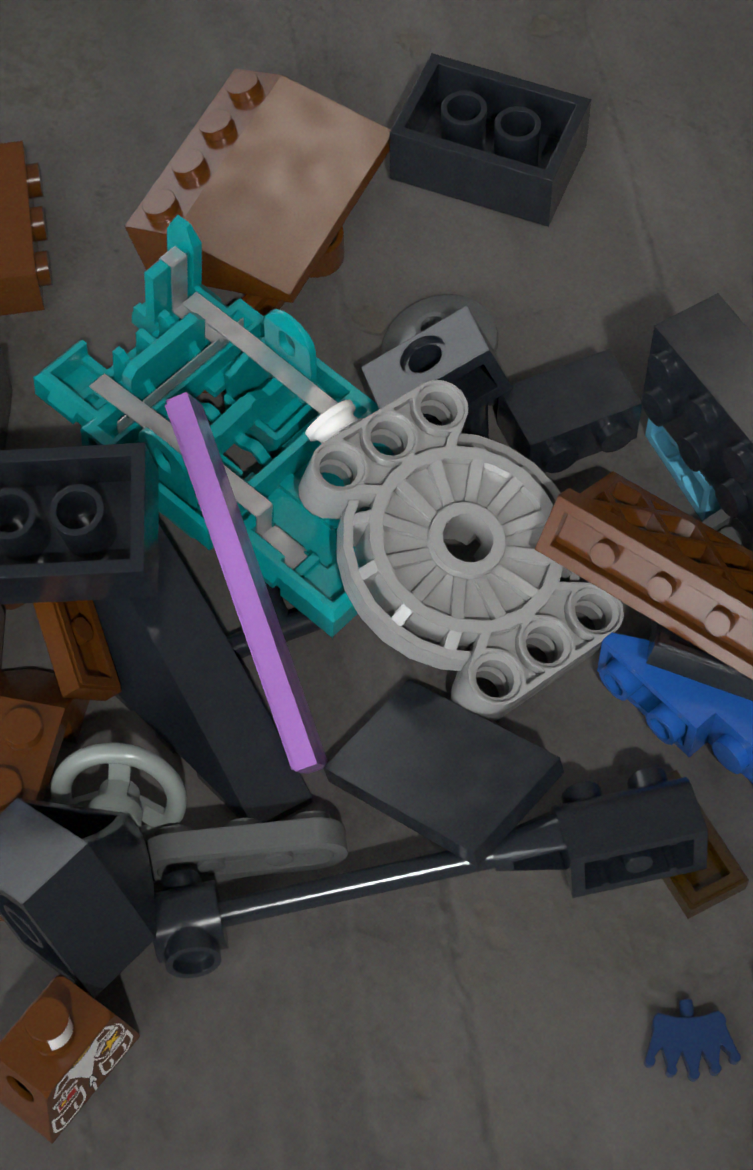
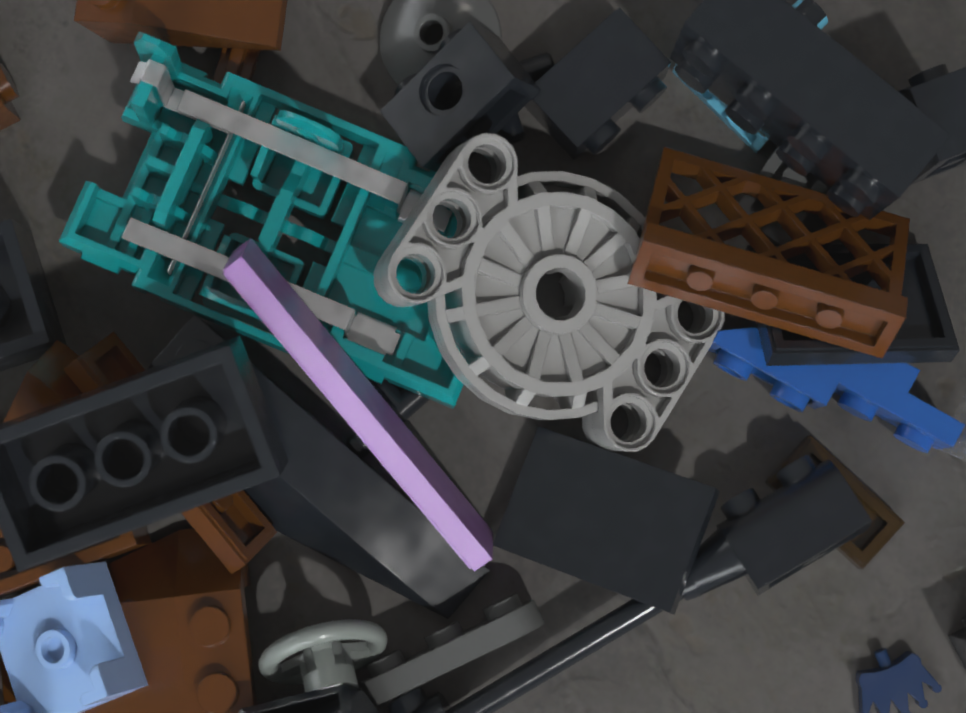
camera: 20 degrees left, 25 degrees up
(332, 422) = (391, 213): white bush -> none

